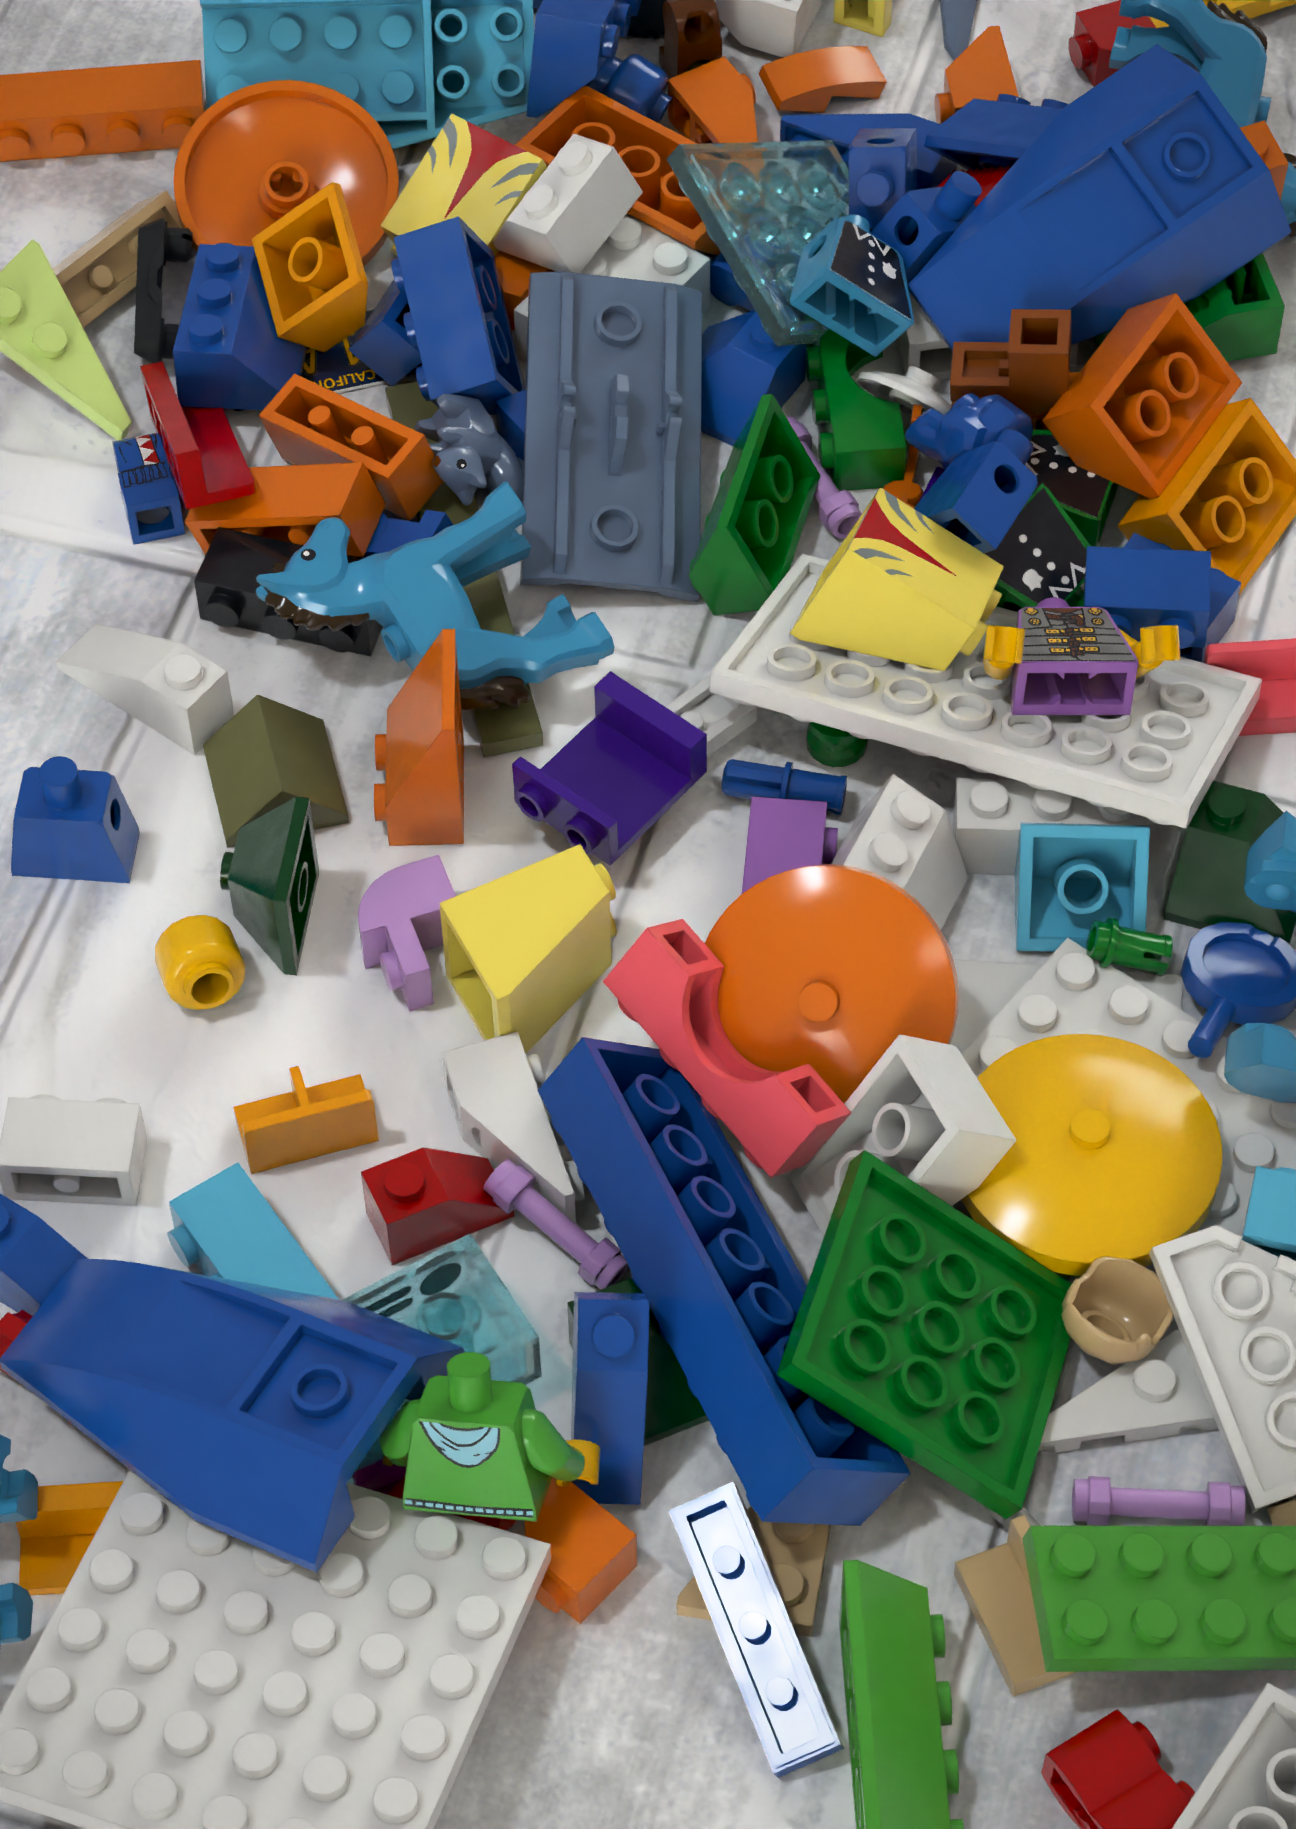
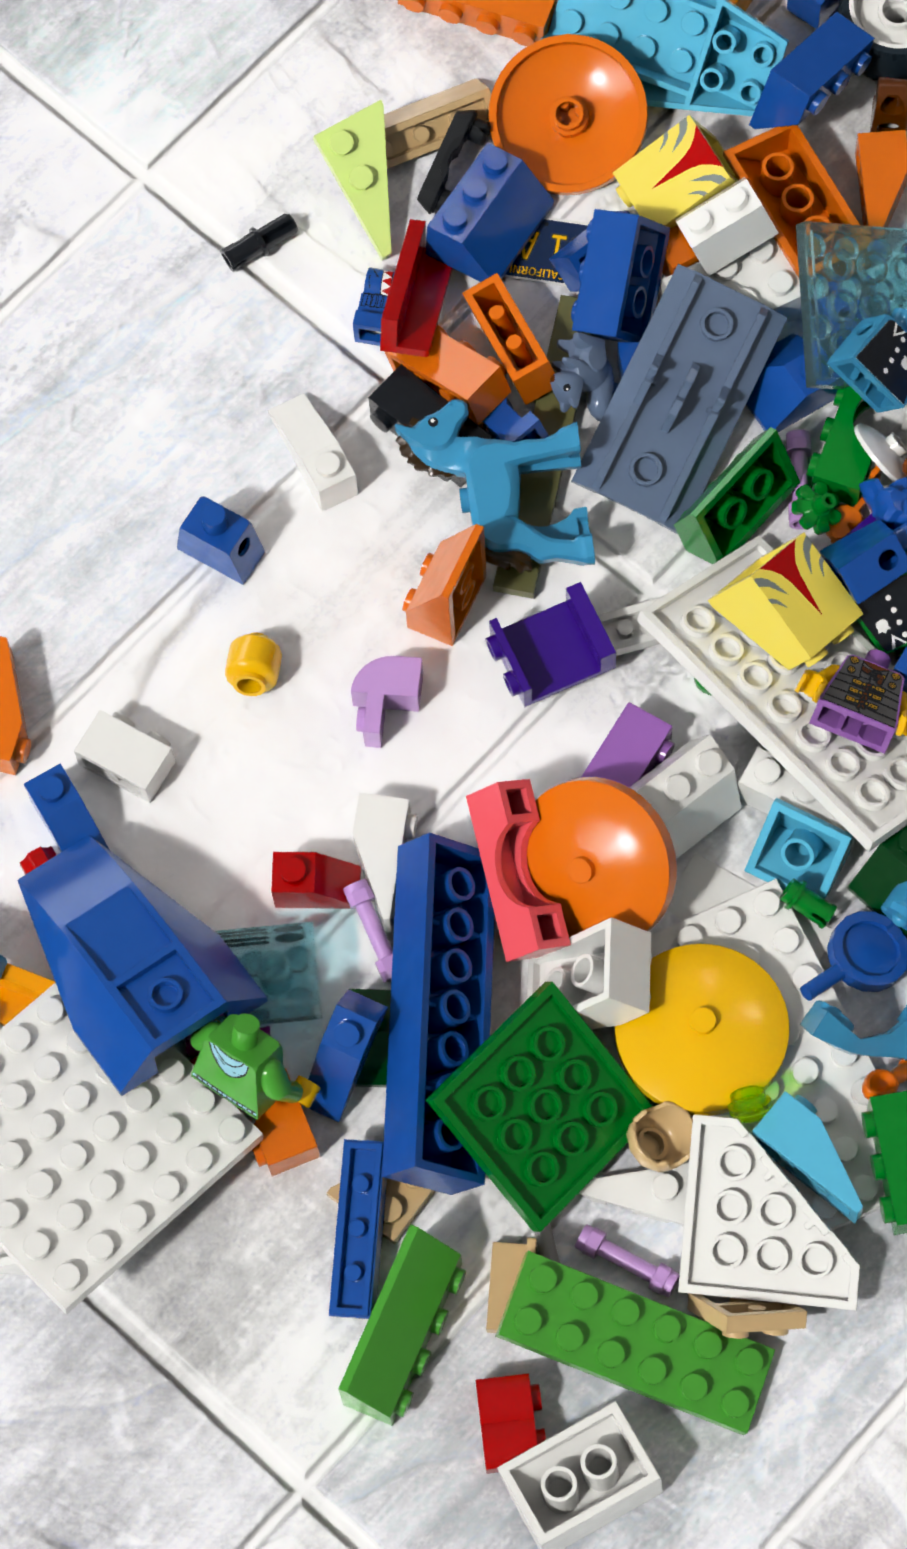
camera: 30 degrees right, 15 degrees up
(239, 1237) = (191, 866): medium azure brick -> none
(268, 759) = (360, 550): olive slope -> none
(275, 880) = (320, 630): dark green slope -> none
(306, 1122) = (267, 795): light orange panel -> none
(314, 272) = (544, 197): light orange slope -> none
(529, 944) = (445, 746): light yellow slope -> none
(635, 85) = (830, 131): blue head -> none
(760, 780) = (662, 696): blue axle -> none
(855, 485) = (816, 507): none -> green plant
(1217, 1203) = (749, 1104): none -> clear neon green plate

